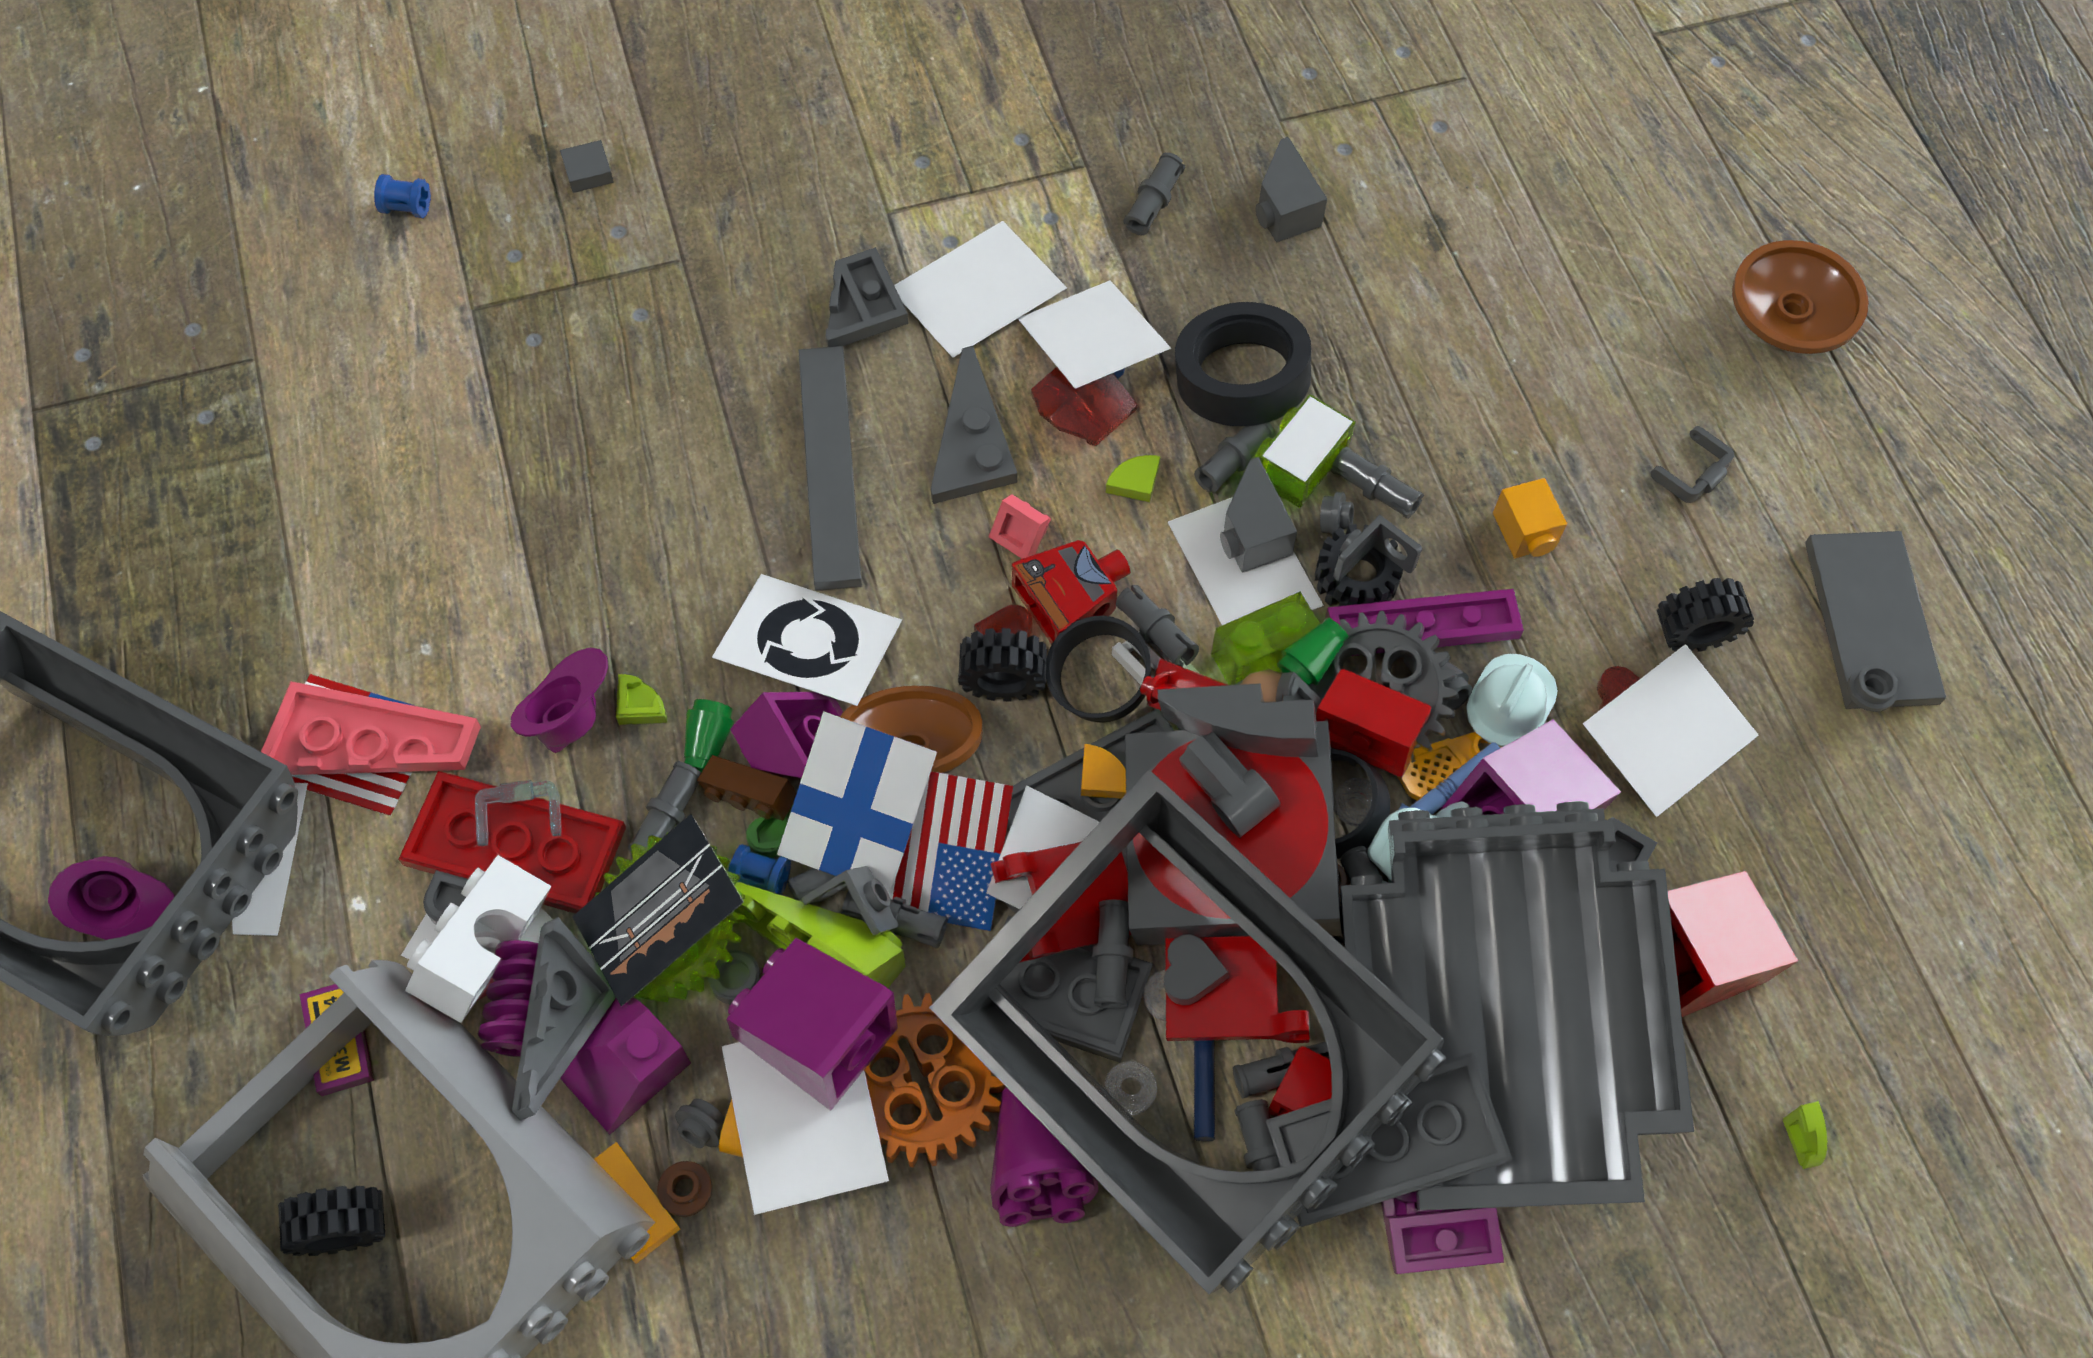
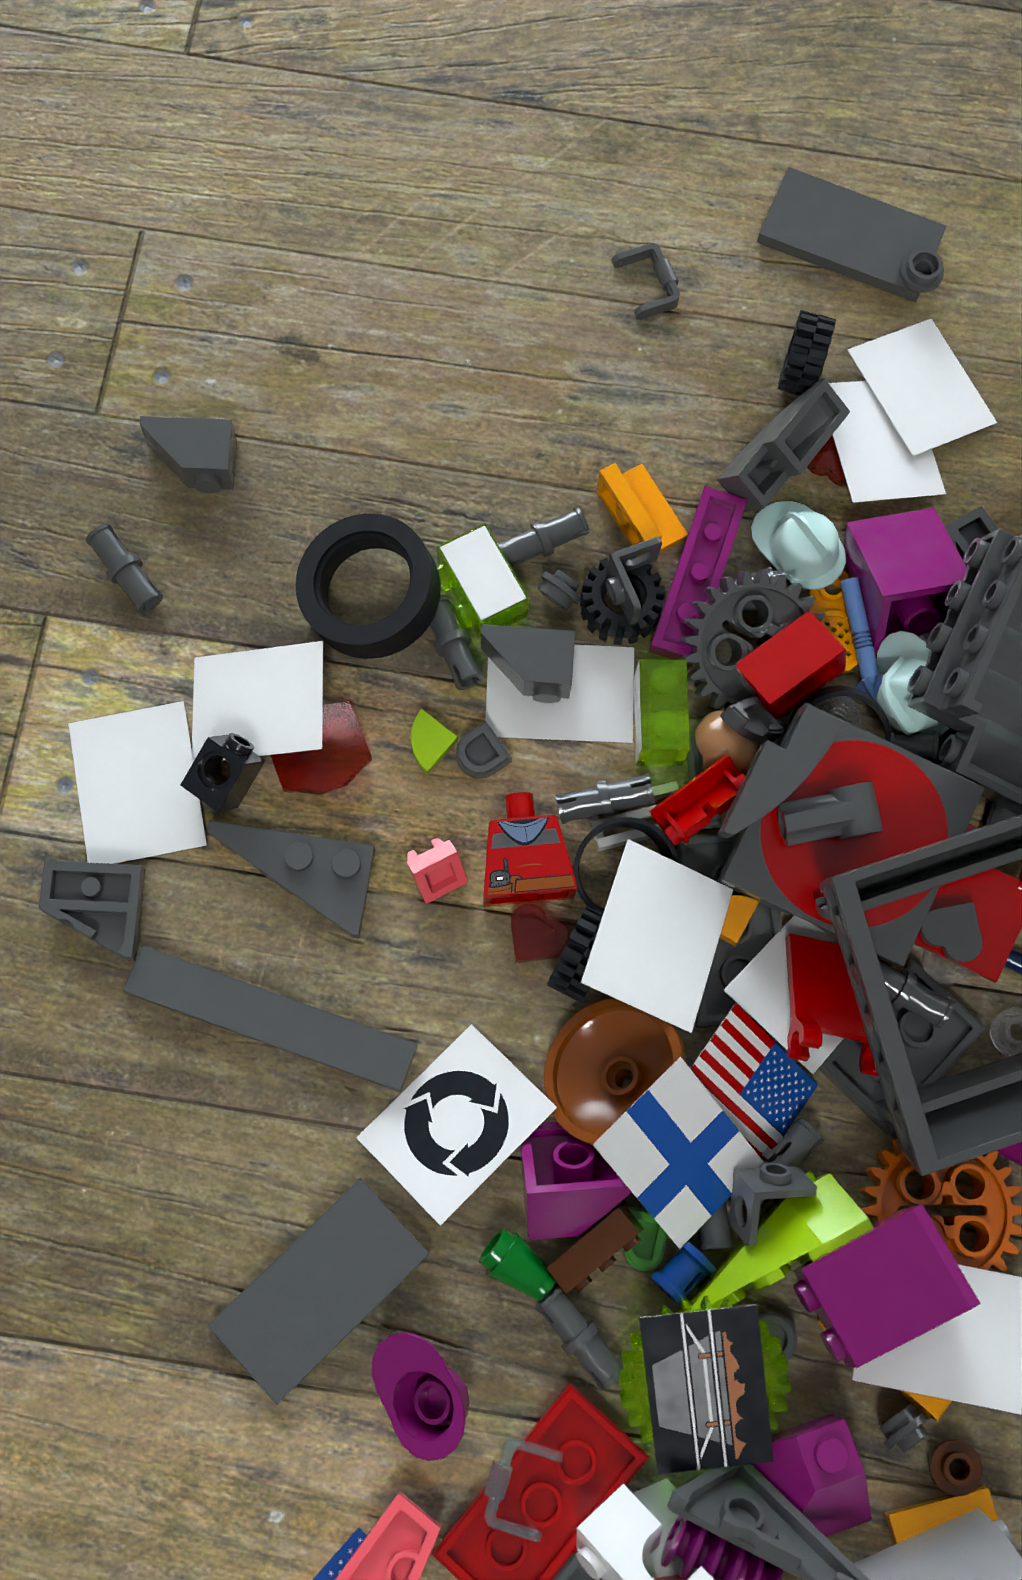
camera: 70 degrees left, 10 degrees up
(621, 598) = (318, 1291): none -> dark grey tile
(638, 702) = (444, 1317): lime tile -> none
(1016, 331) = (205, 776): none -> black brick
(1046, 706) = (658, 936): none -> white sticker
(1149, 521) = (481, 753): none -> dark grey tile
(1314, 652) = (708, 680): green cone -> none
(1458, 550) = (639, 506): none -> light orange panel
(1529, 518) = (643, 435): light orange brick -> none
(1599, 637) = (784, 446): none -> dark grey slope
(1755, 747) = (922, 387): none -> white sticker
(1800, 296) = (542, 88): dark orange dish -> none

